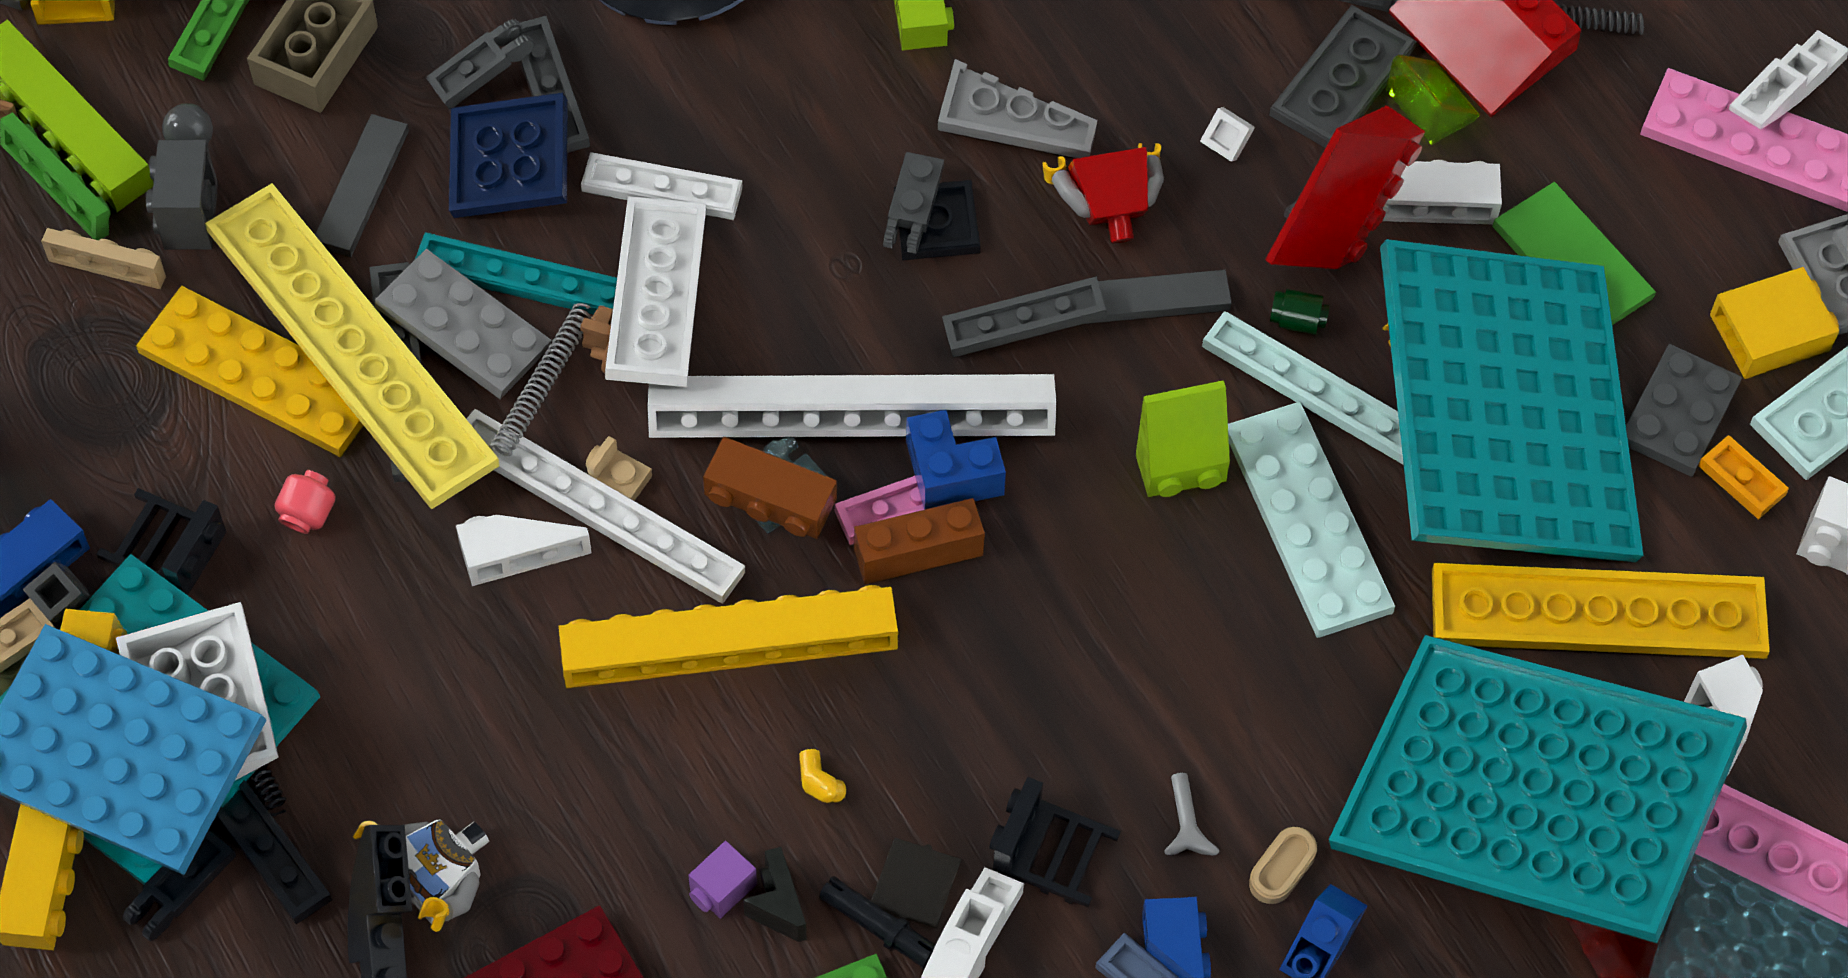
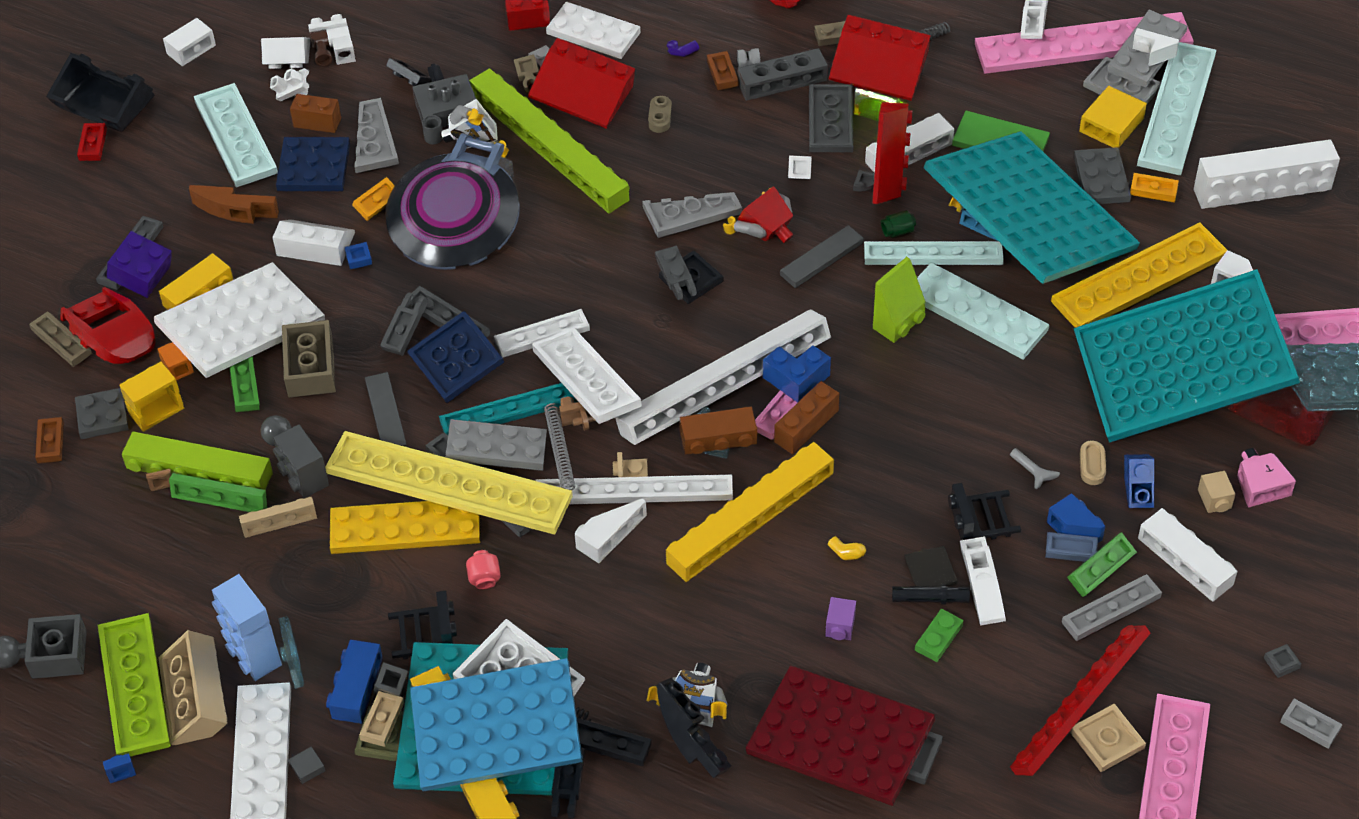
camera: 30 degrees left, 10 degrees down
(779, 906) = (877, 611): pearl dark grey slope -> none
(1024, 316) = (773, 293): dark grey plate -> none

